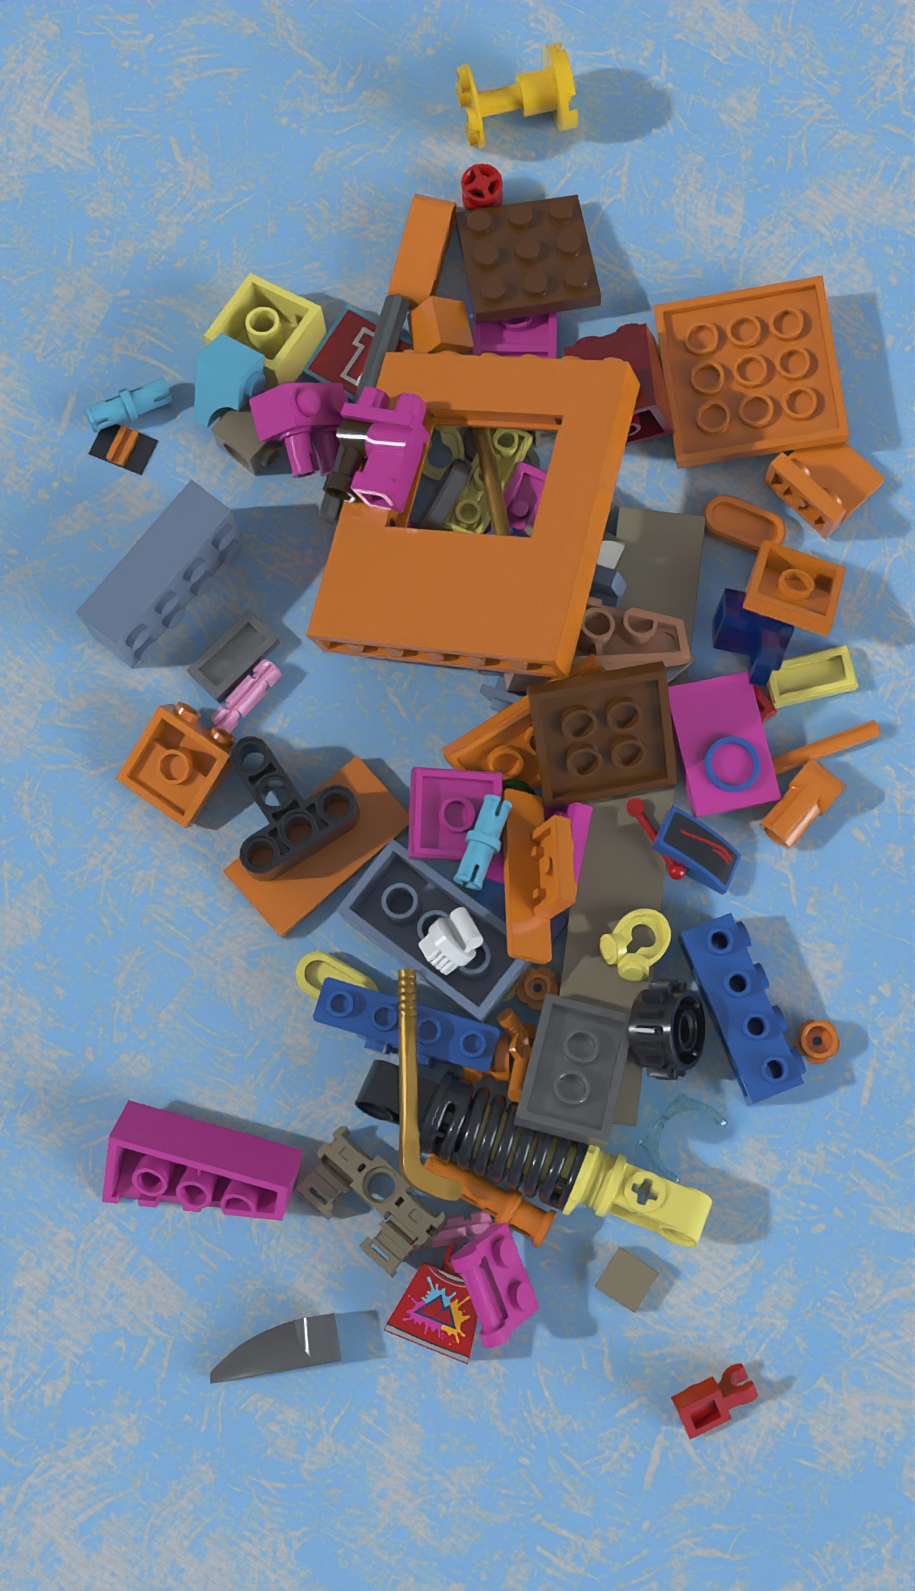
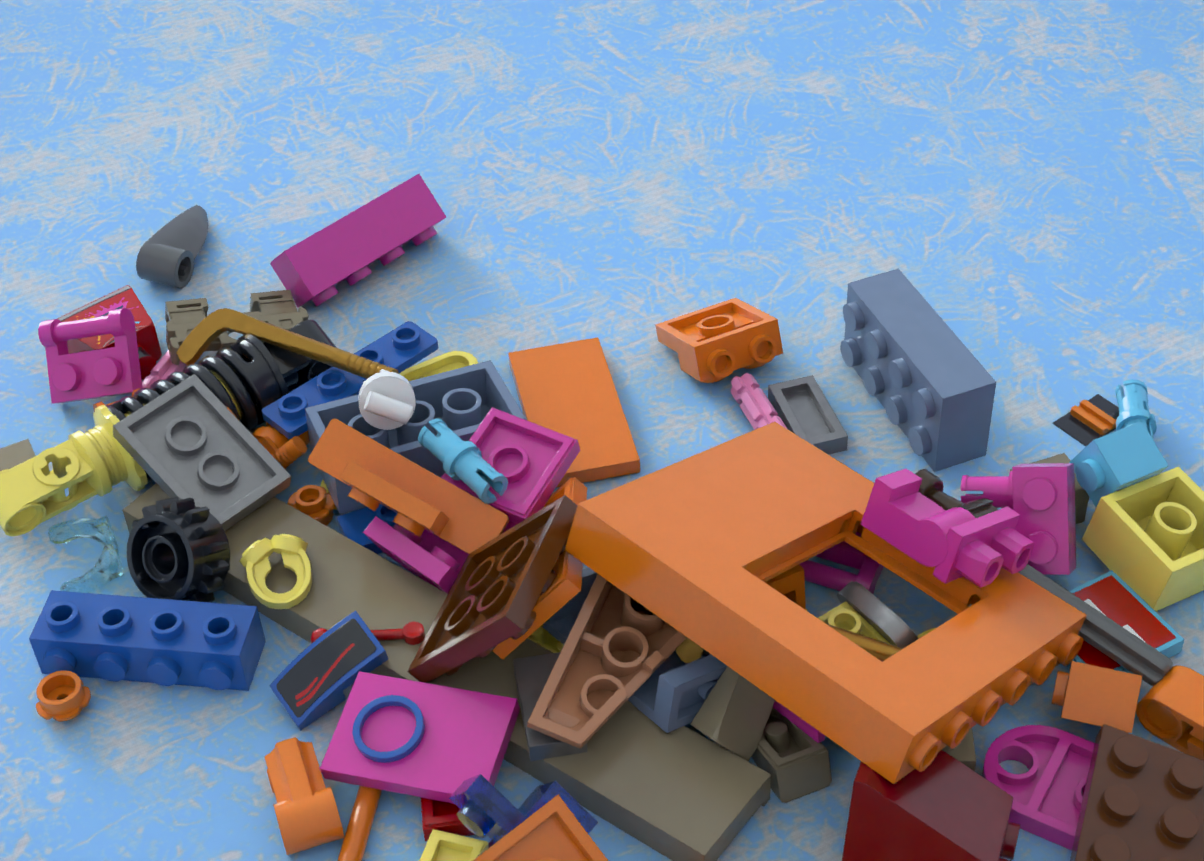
camera: 115 degrees right, 35 degrees down
(288, 814) = (622, 376): black beam -> none

